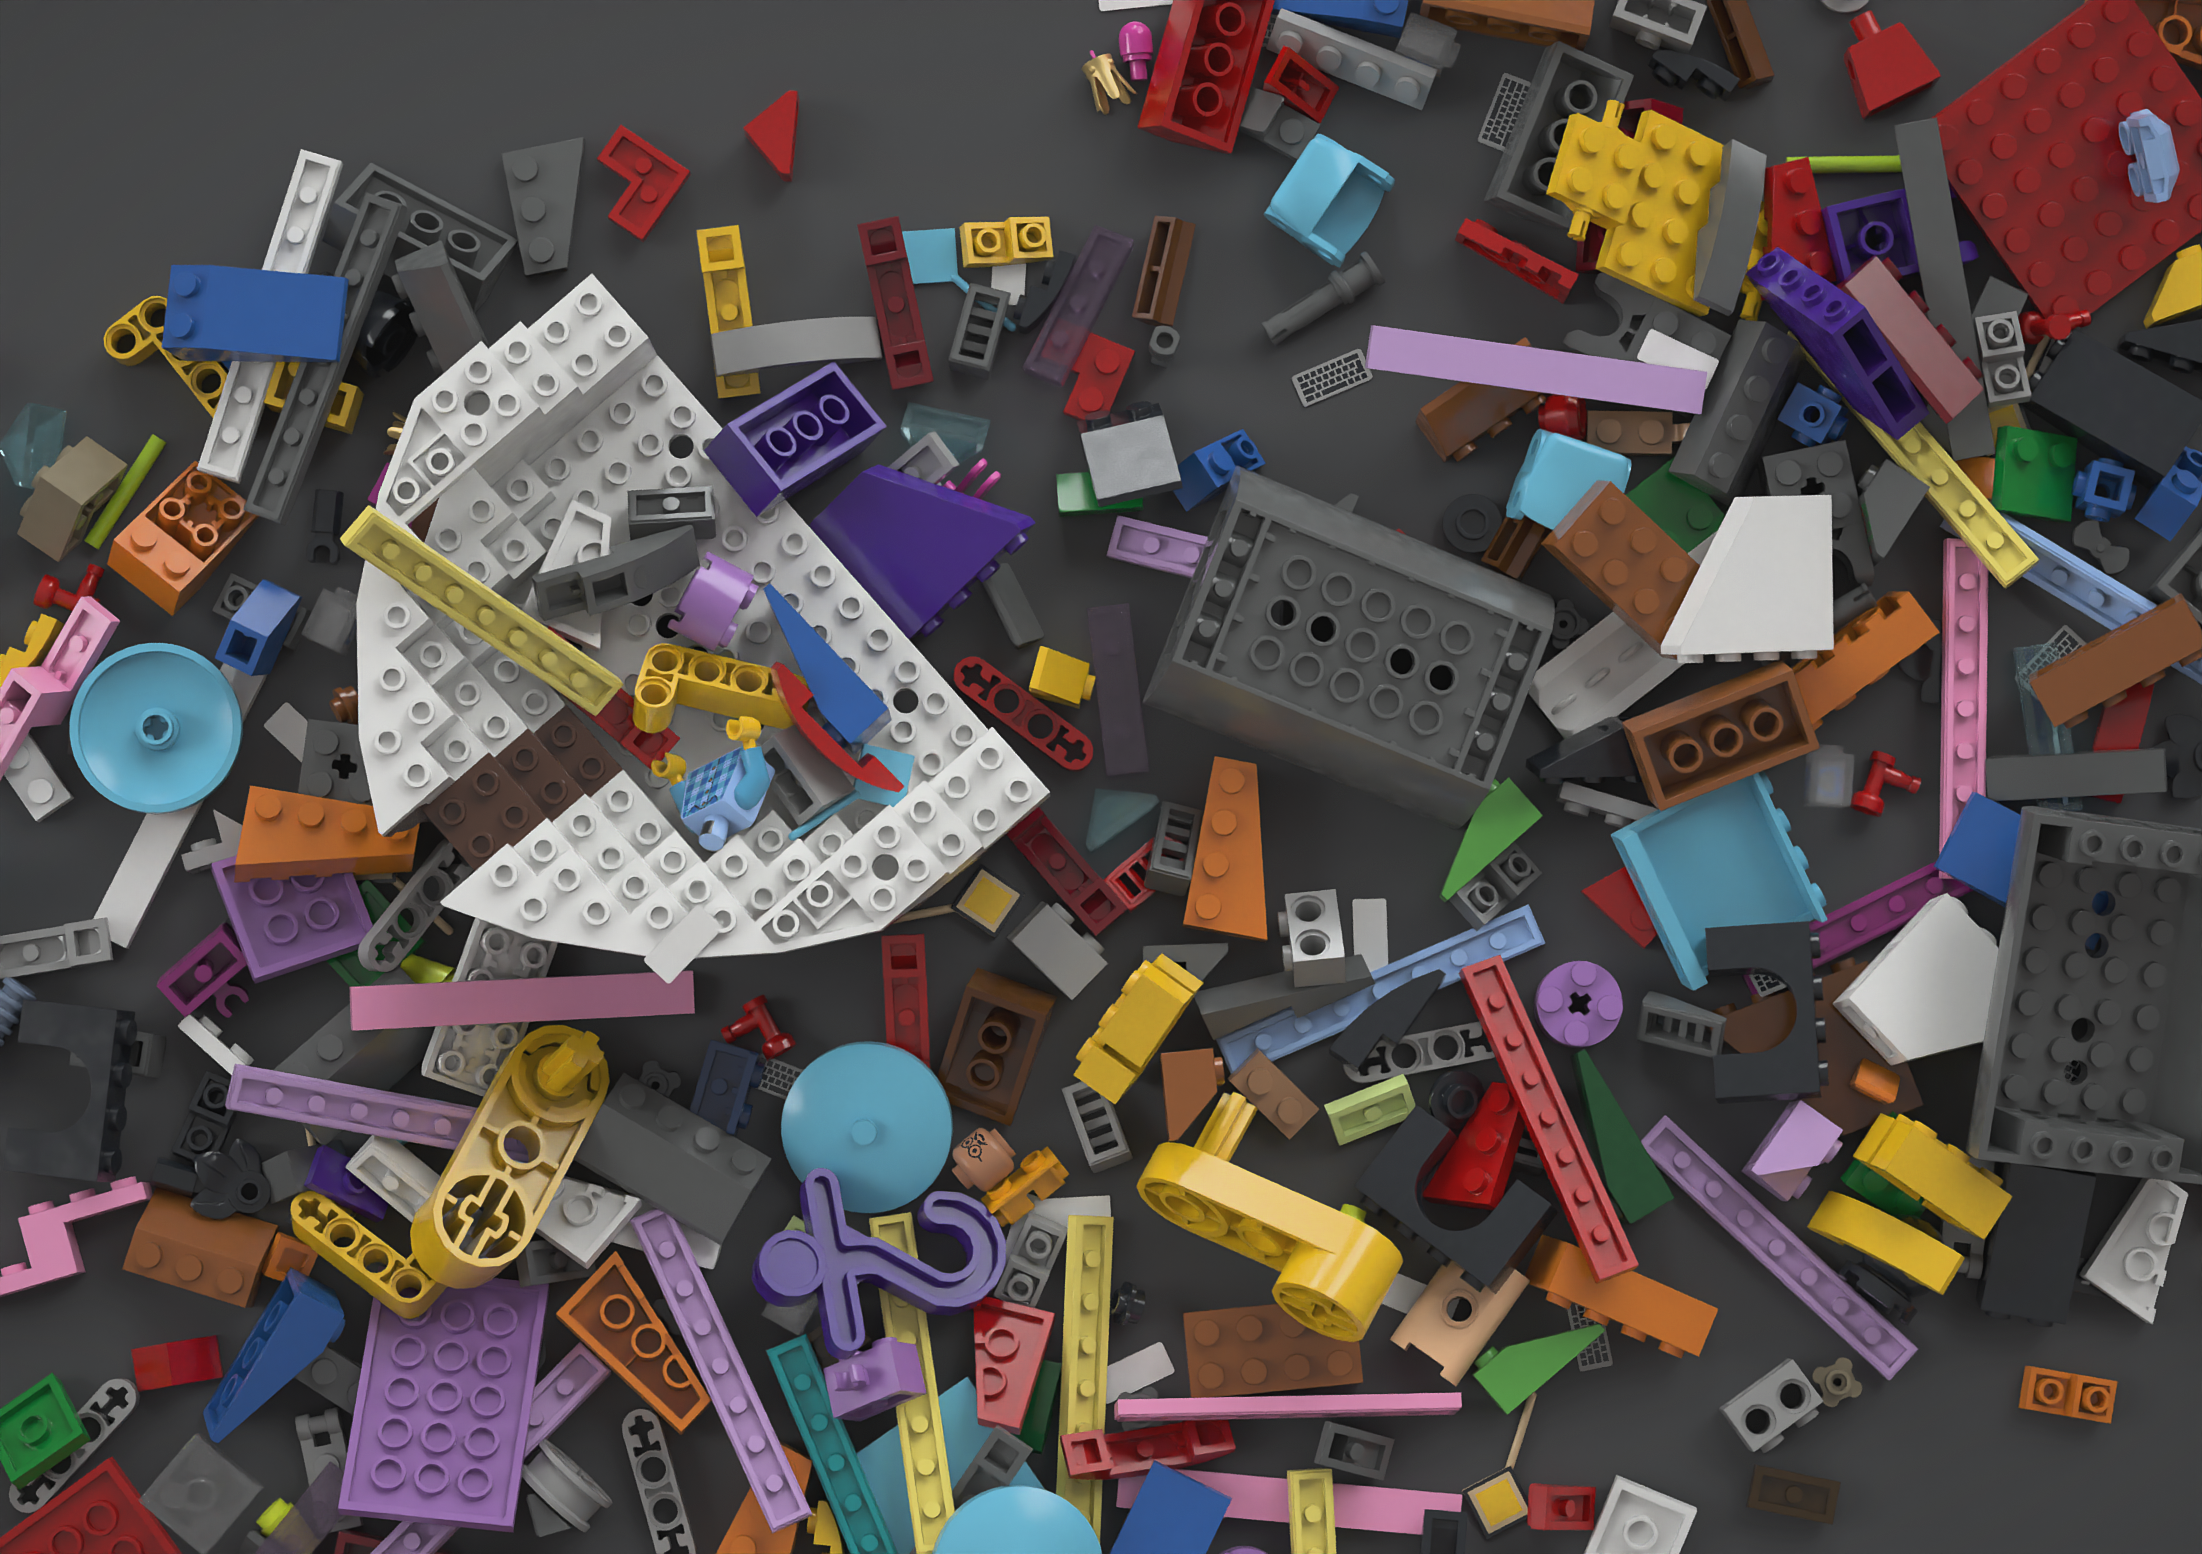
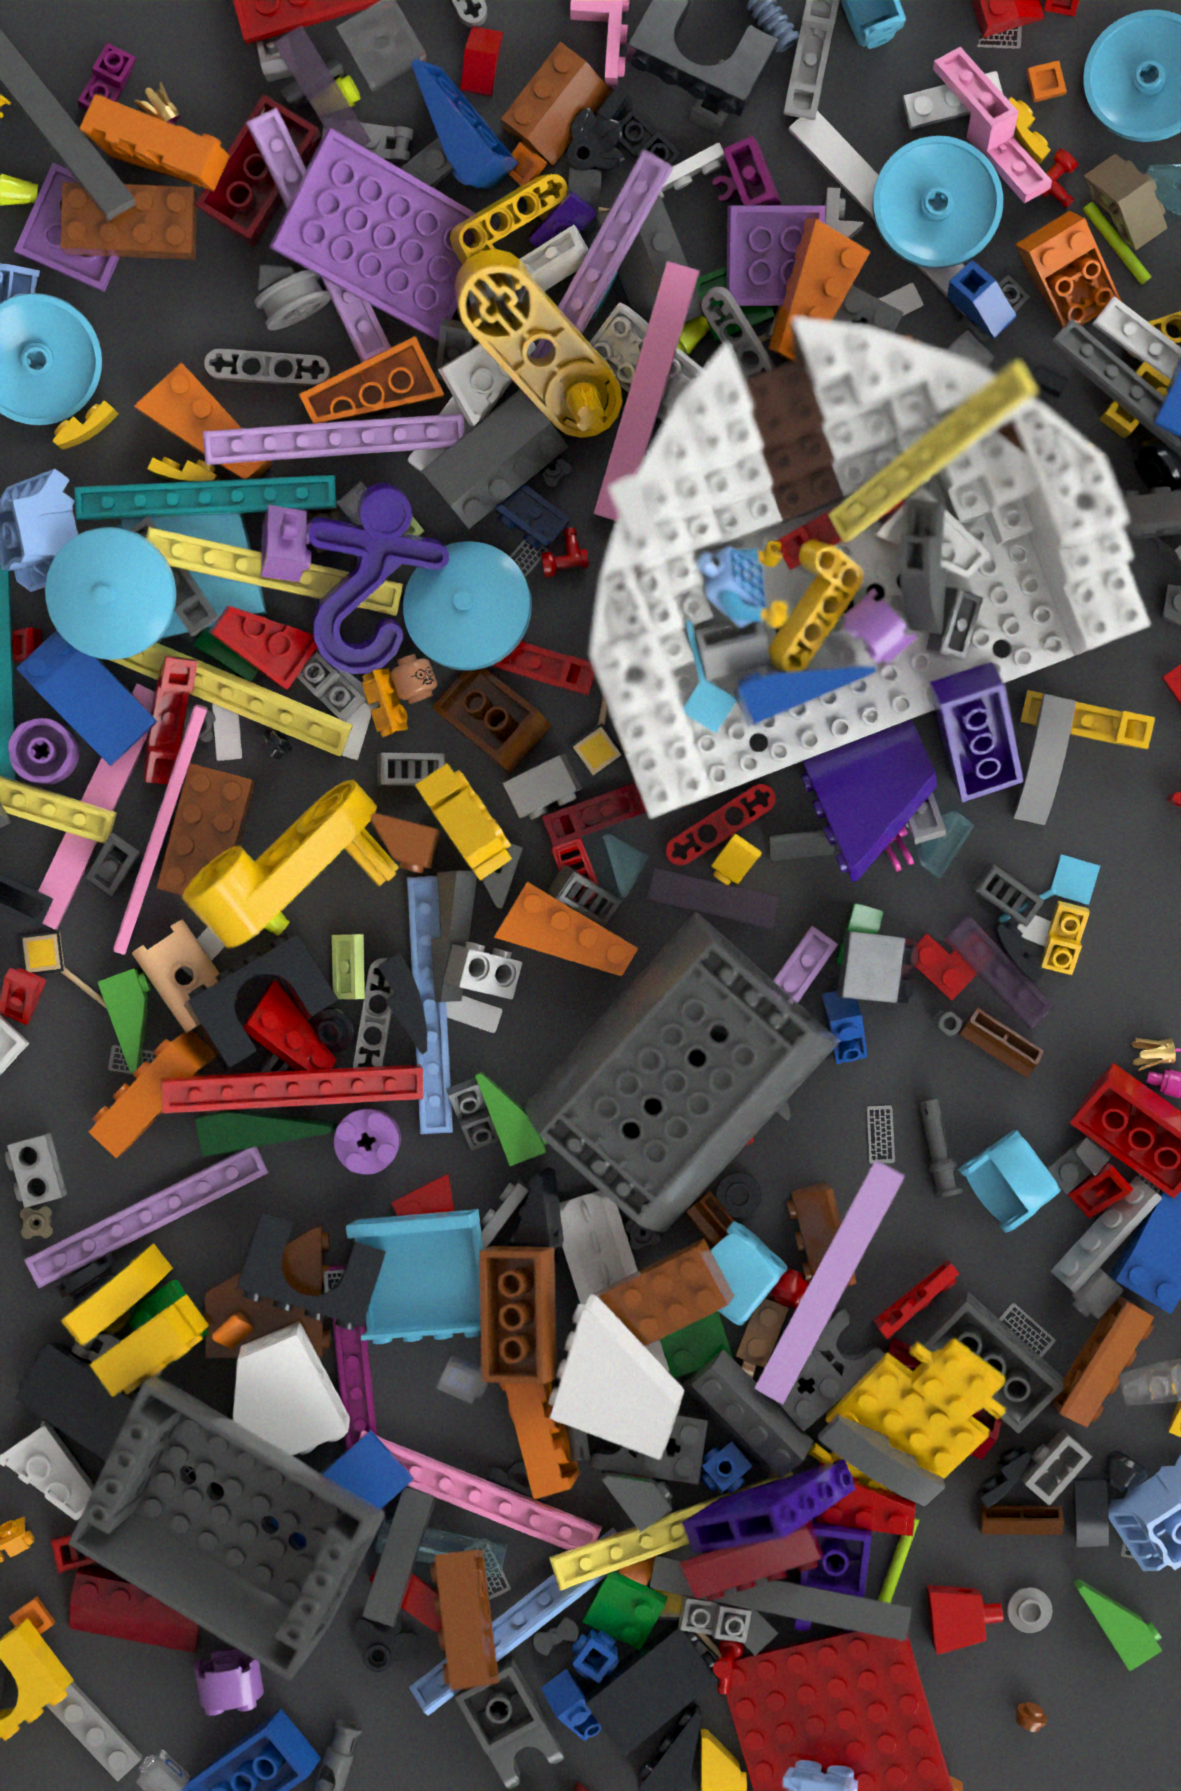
camera: 110 degrees right, 5 degrees up
(793, 696) = (716, 693): red slope -> none
(895, 303) = (1049, 842): dark red slope -> none
(1273, 1093) = (385, 901): medium nougat plate -> none
(1665, 1035) = (322, 1194): dark grey slope -> none
(1666, 351) = (808, 1381): white sticker -> none
(1791, 1149) = (209, 1253): lavender slope -> none
(1881, 772) = (453, 1419): red piece -> none

